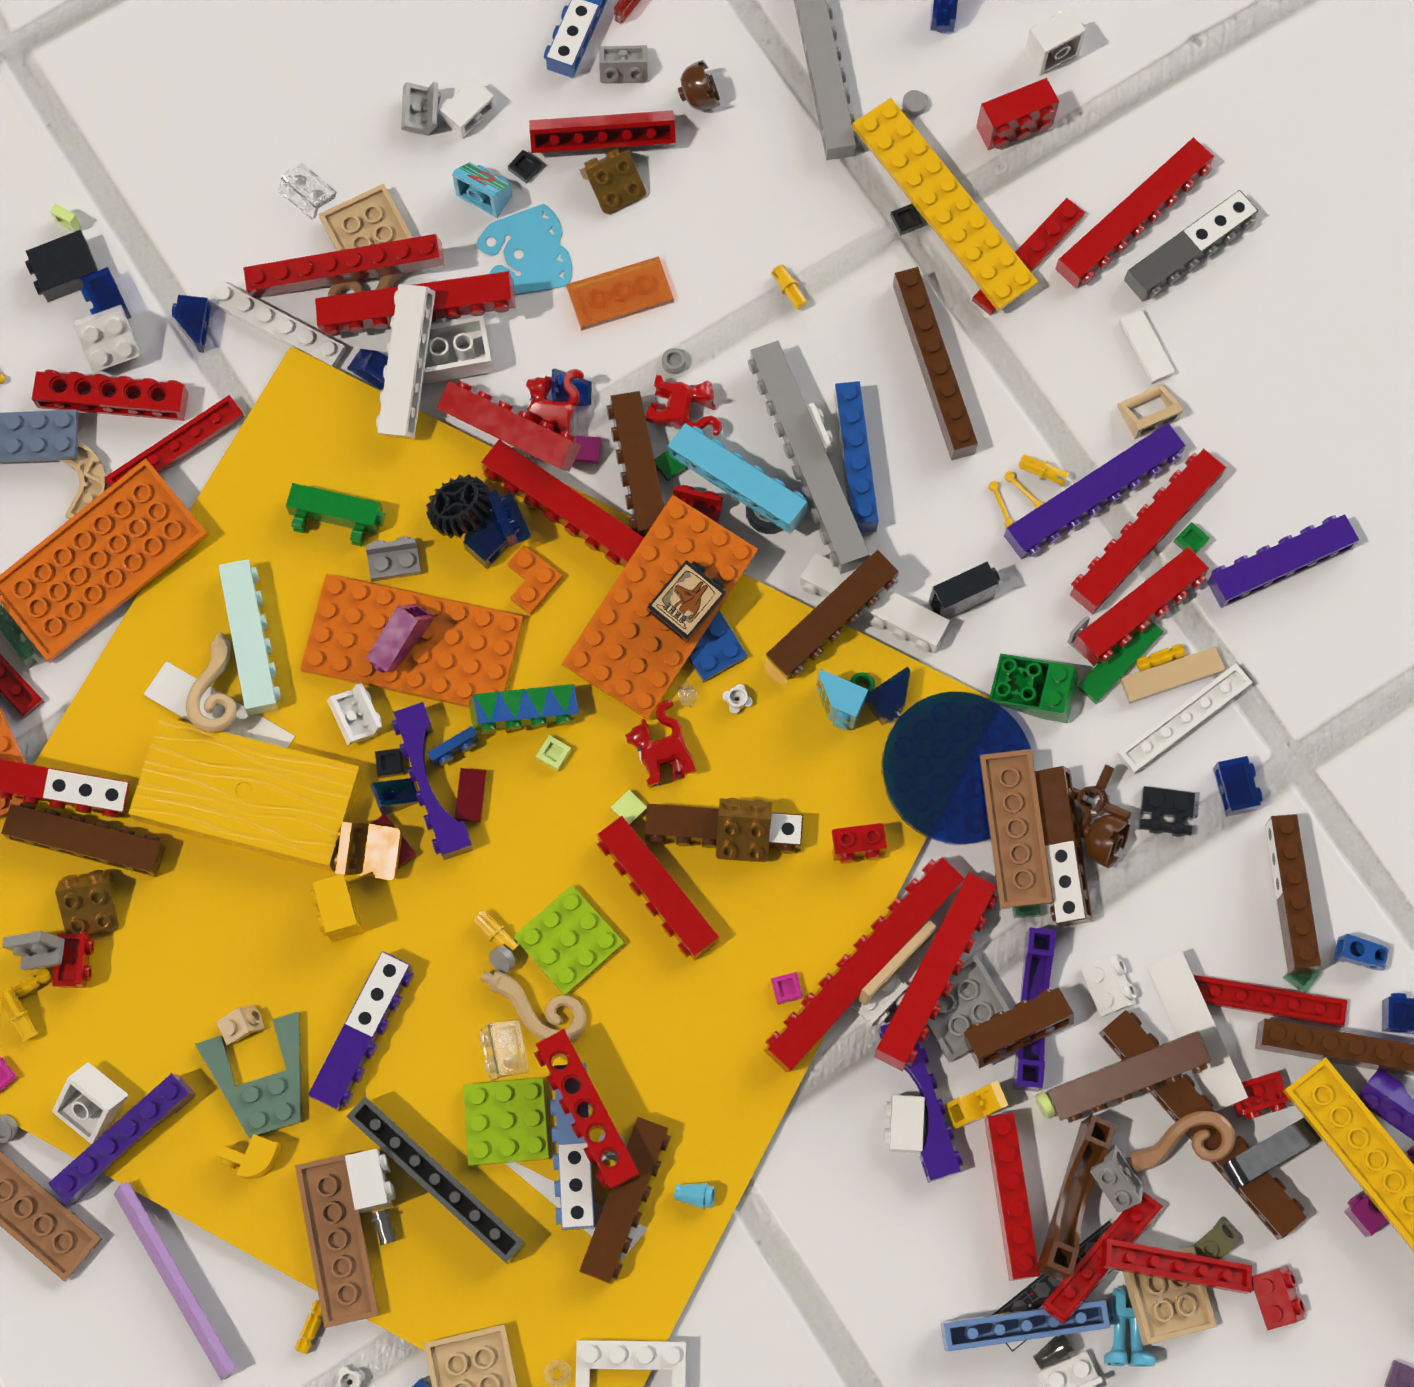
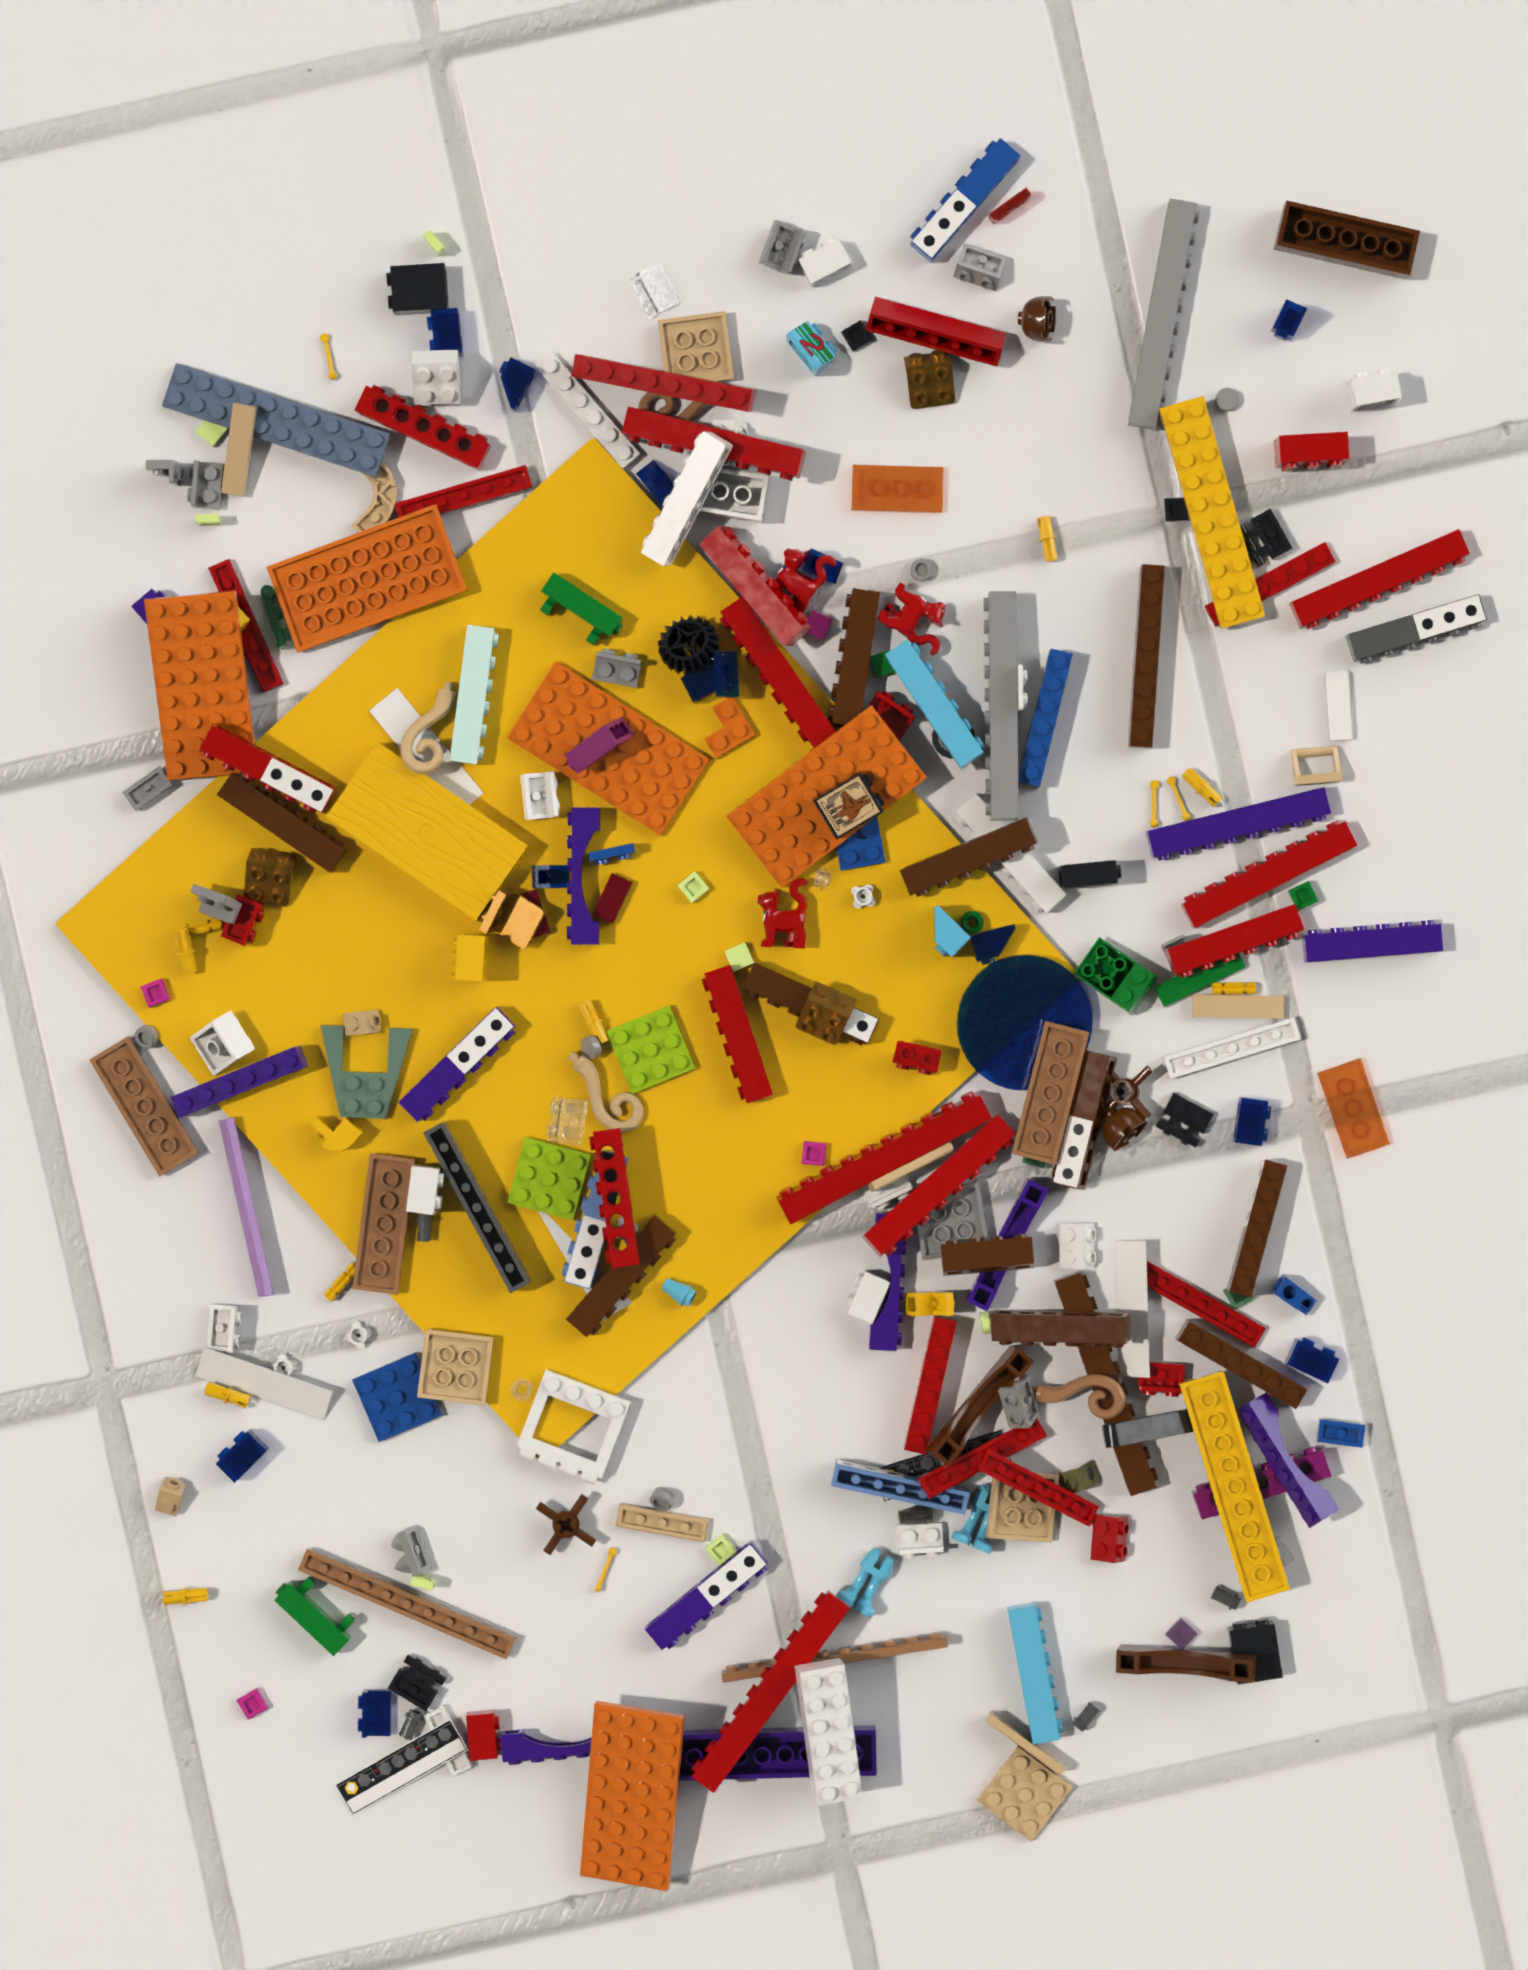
camera: 25 degrees right, 15 degrees up
(389, 763) = (554, 846): black tile -> none
(523, 708) = (681, 843): green brick -> none
(540, 249) = (842, 422): medium azure piece -> none
(1011, 210) = (1270, 534): none -> black plate
(1336, 735) = (1353, 1108): none -> clear orange tile

